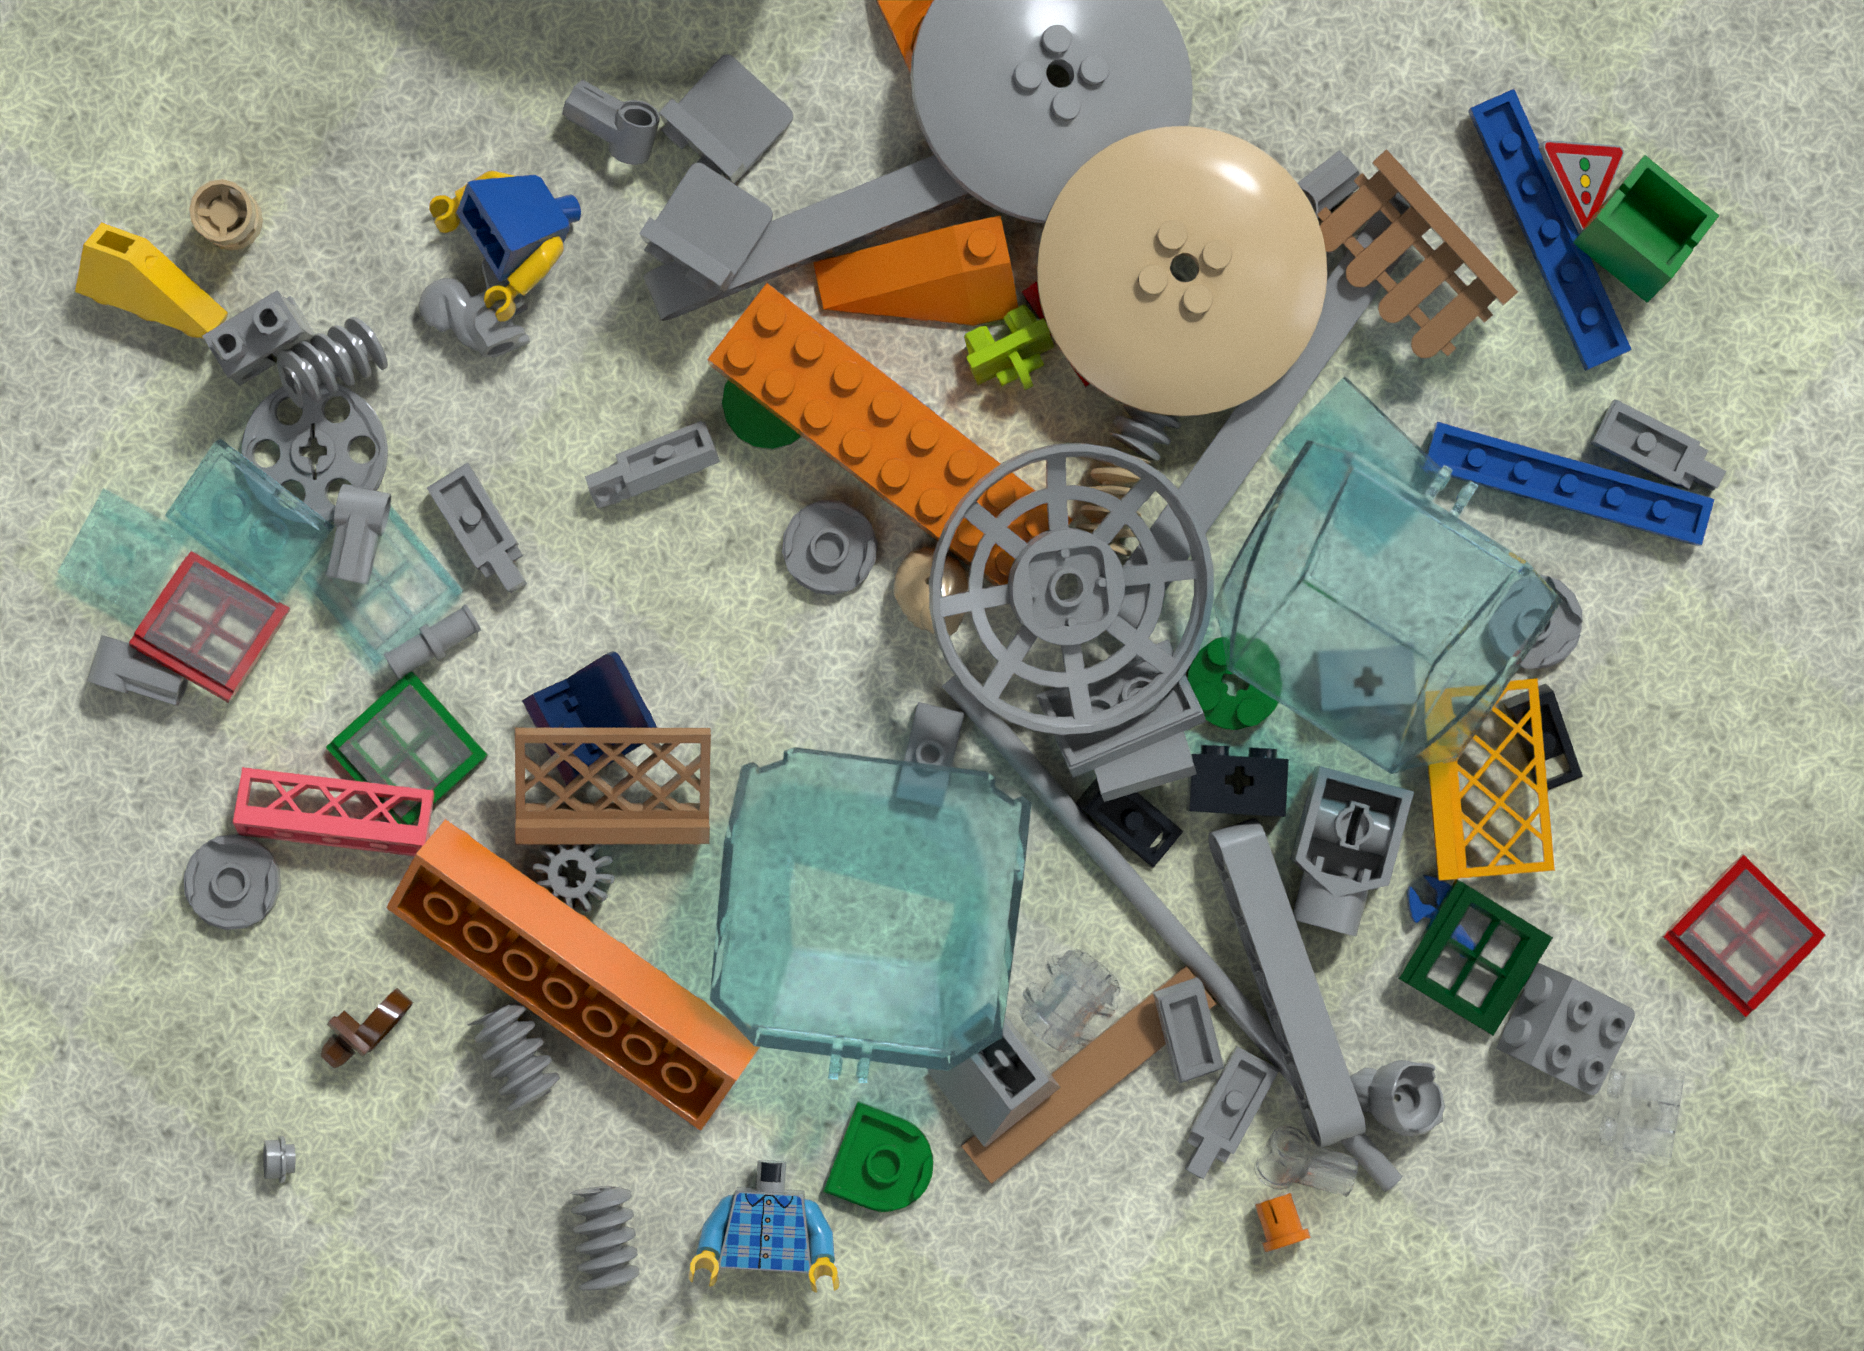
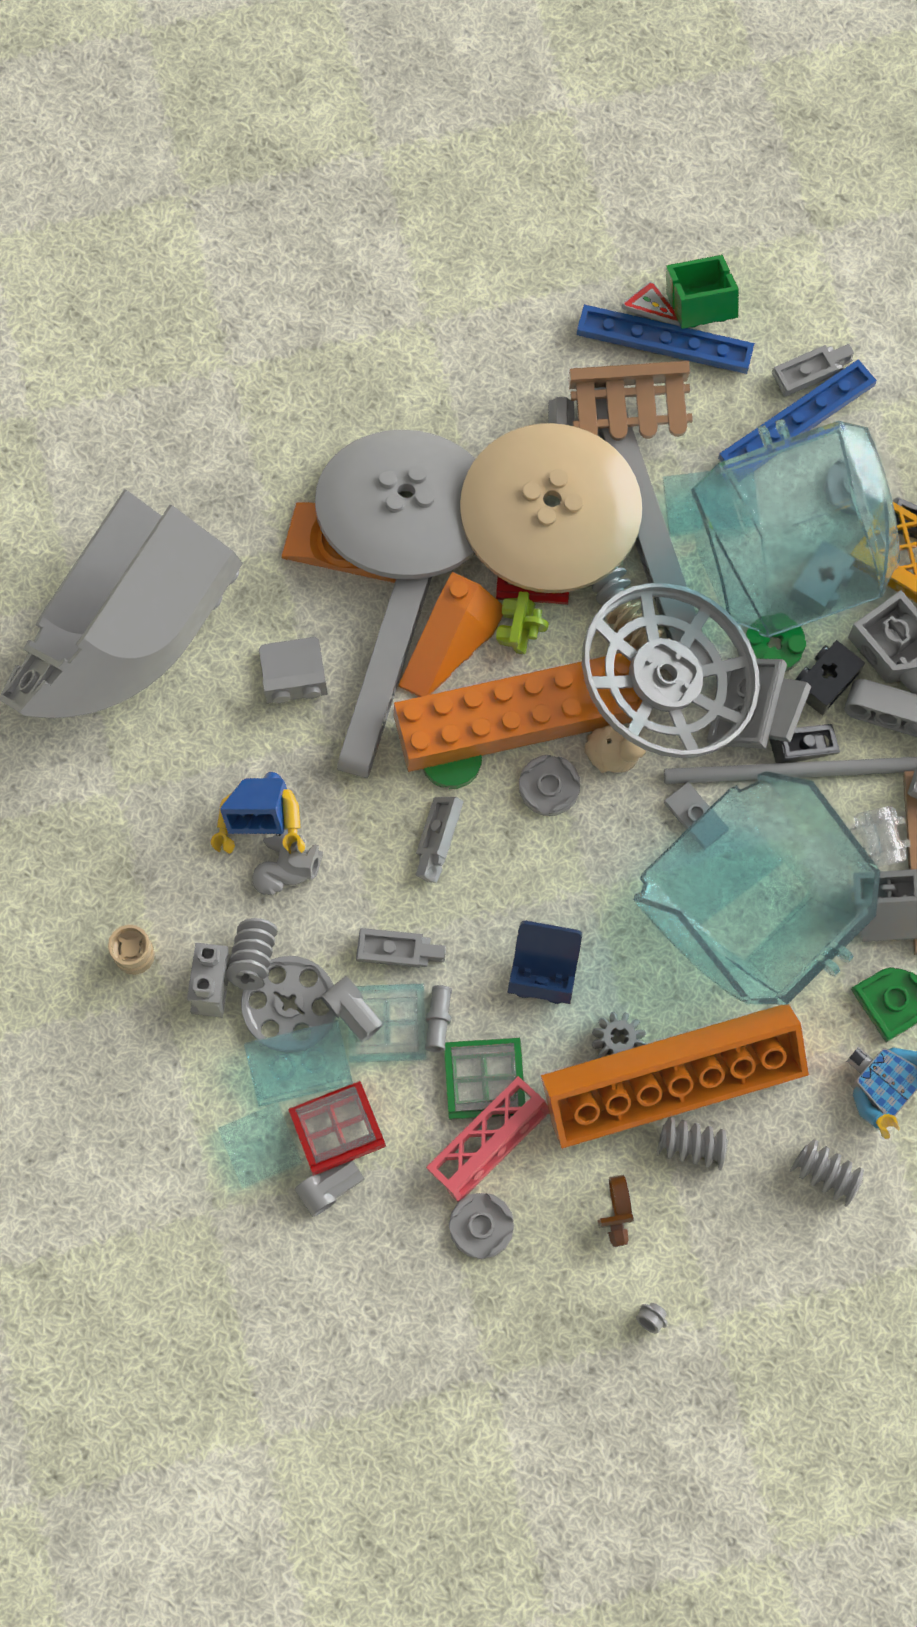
camera: 50 degrees left, 15 degrees down
(139, 278) = (125, 1020): yellow slope -> none
(616, 821) = (603, 999): medium nougat fence -> none
(626, 125) = (254, 720): light grey piece -> none
(707, 228) = (342, 712): light grey bracket -> none

